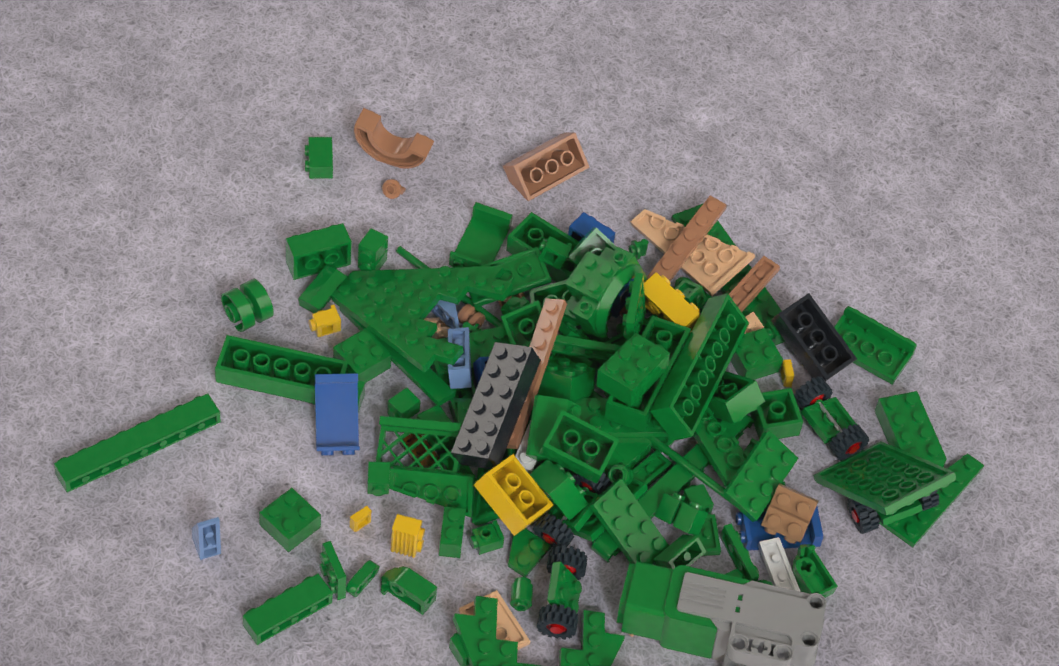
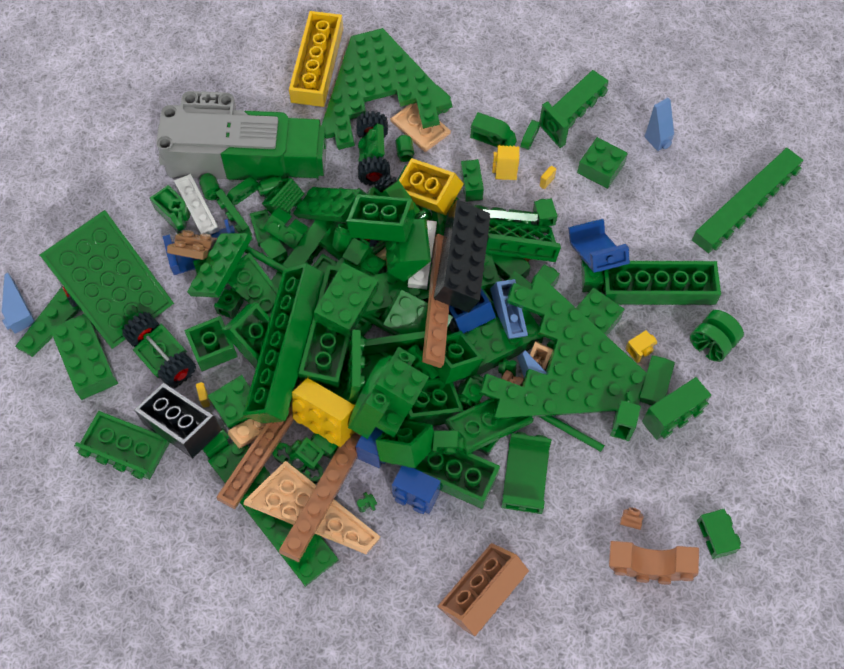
camera: 175 degrees right, 10 degrees up
(986, 500) = (14, 308): none -> medium blue slope

